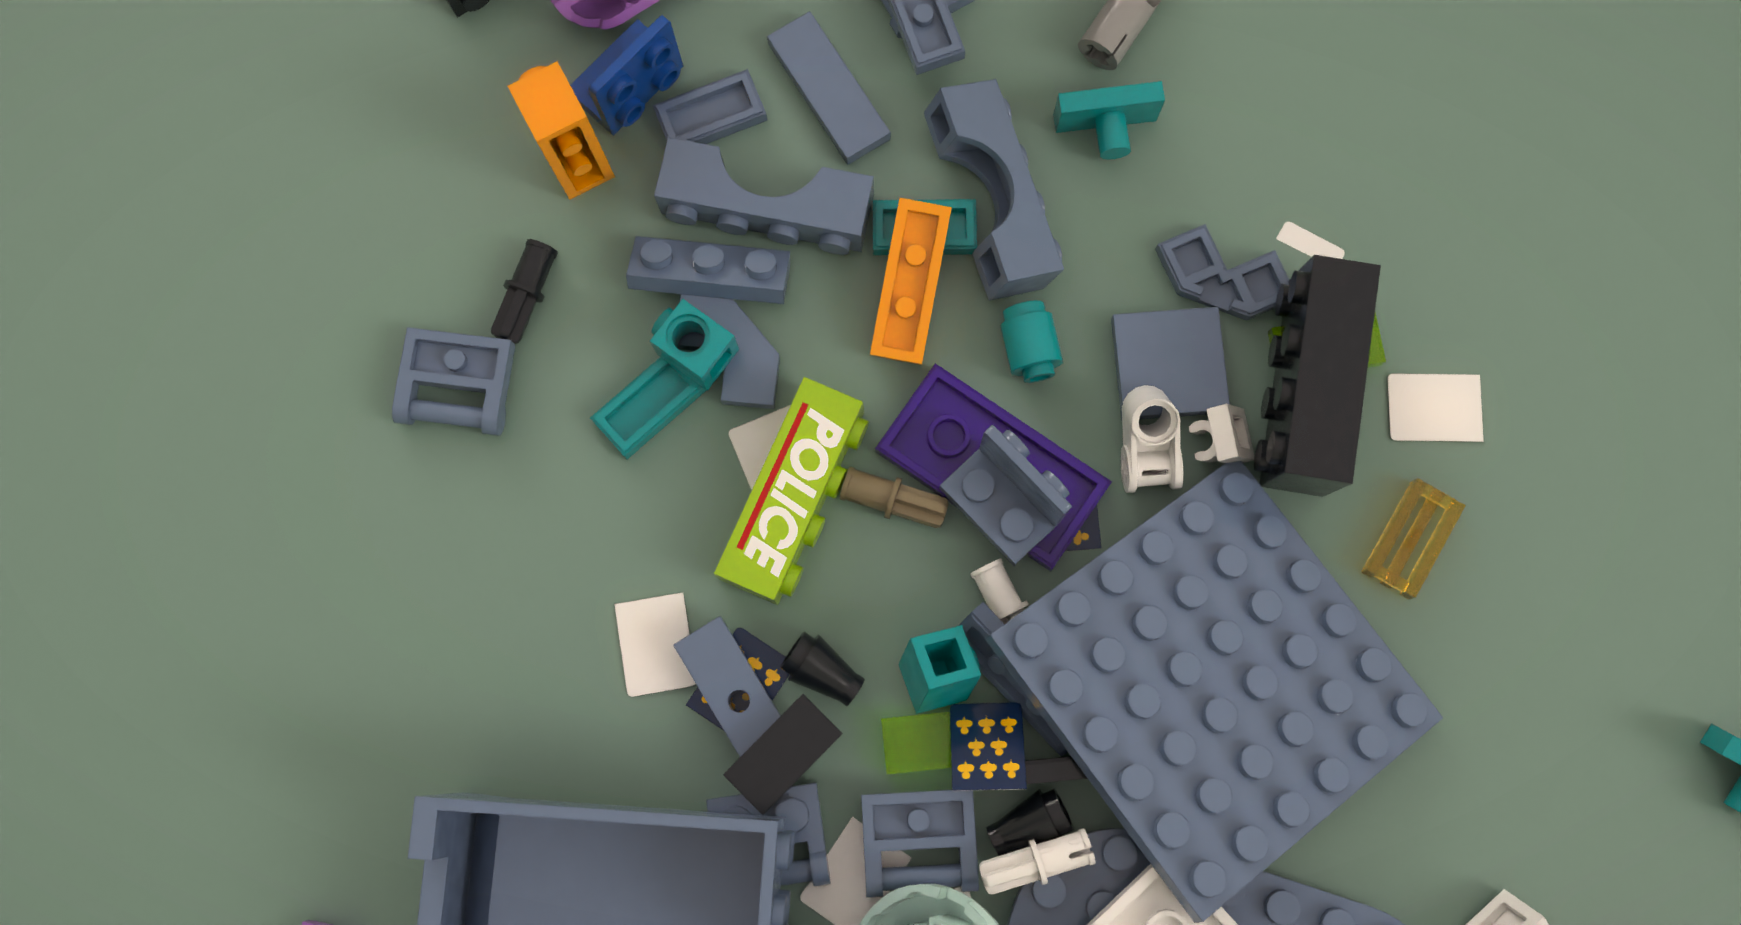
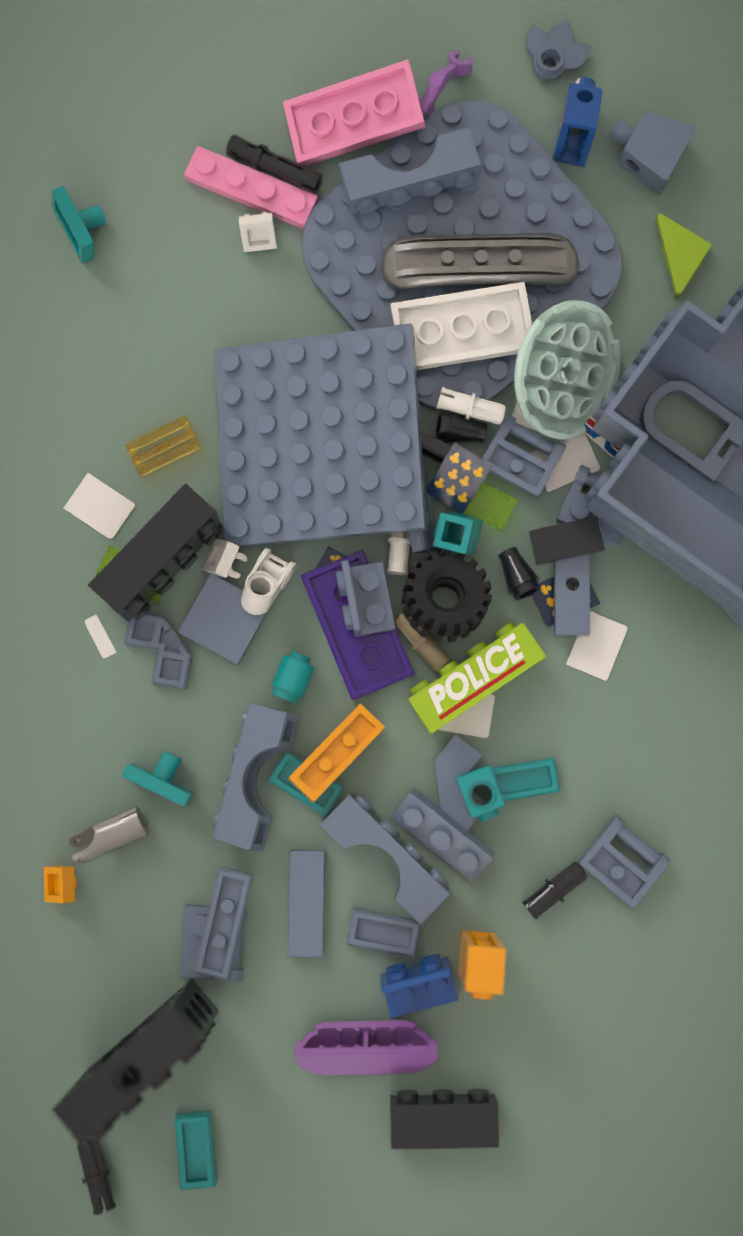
camera: 150 degrees left, 5 degrees up
(909, 611) = (450, 573): none -> black tyre

